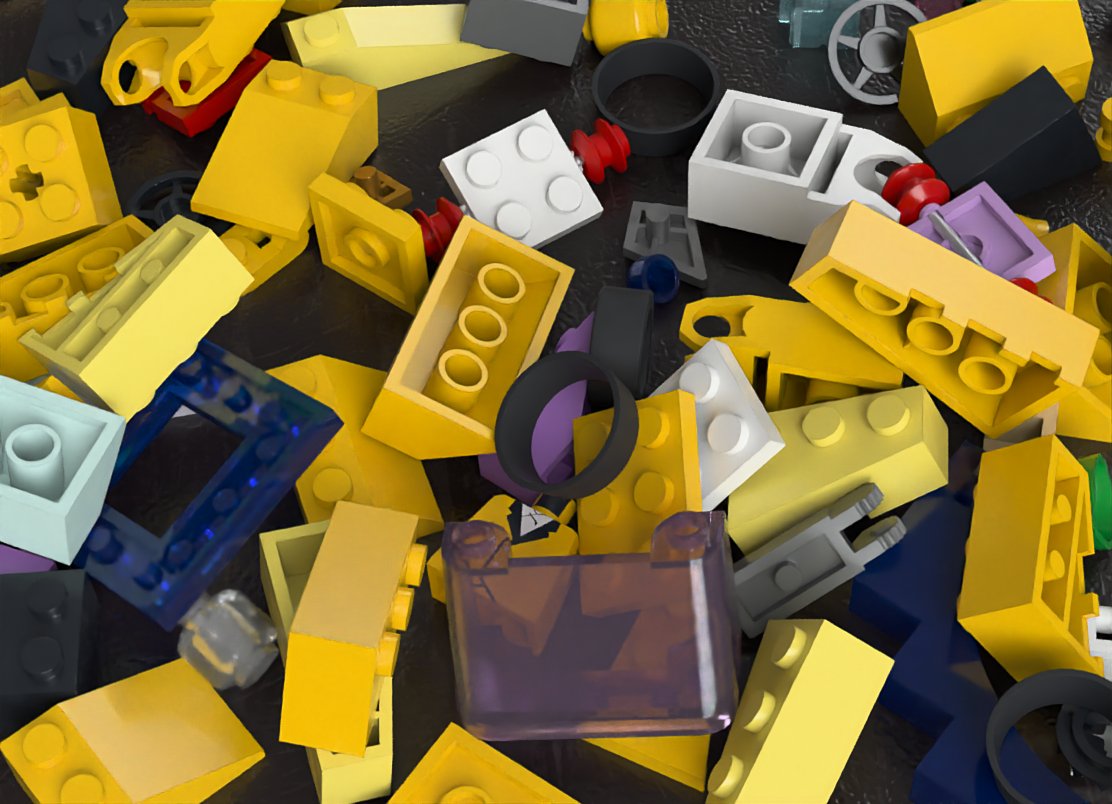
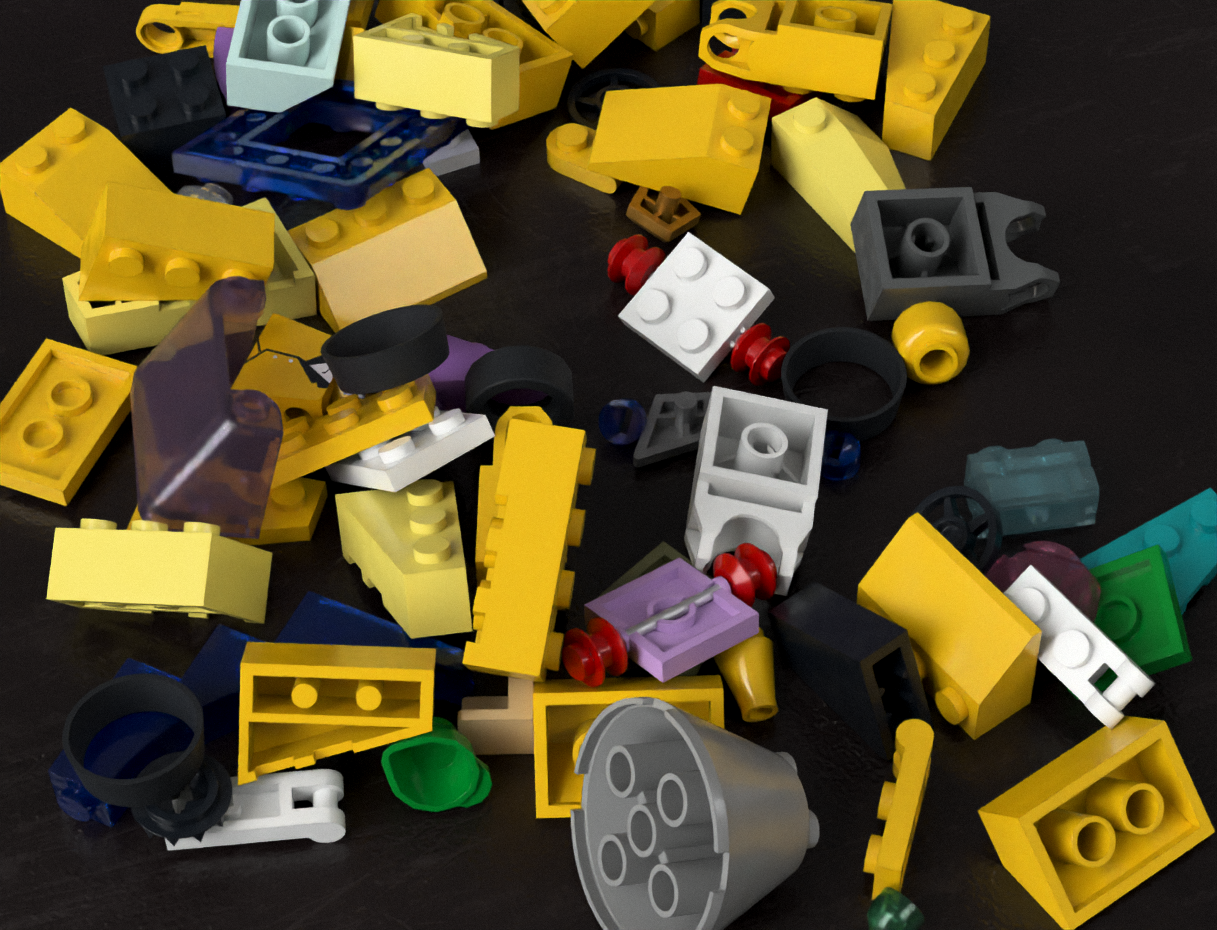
camera: 75 degrees right, 5 degrees down
(369, 242) = (588, 210): yellow plate -> none
(467, 345) = (503, 286): yellow slope -> none
(810, 559) = (319, 556): dark grey hinge -> none

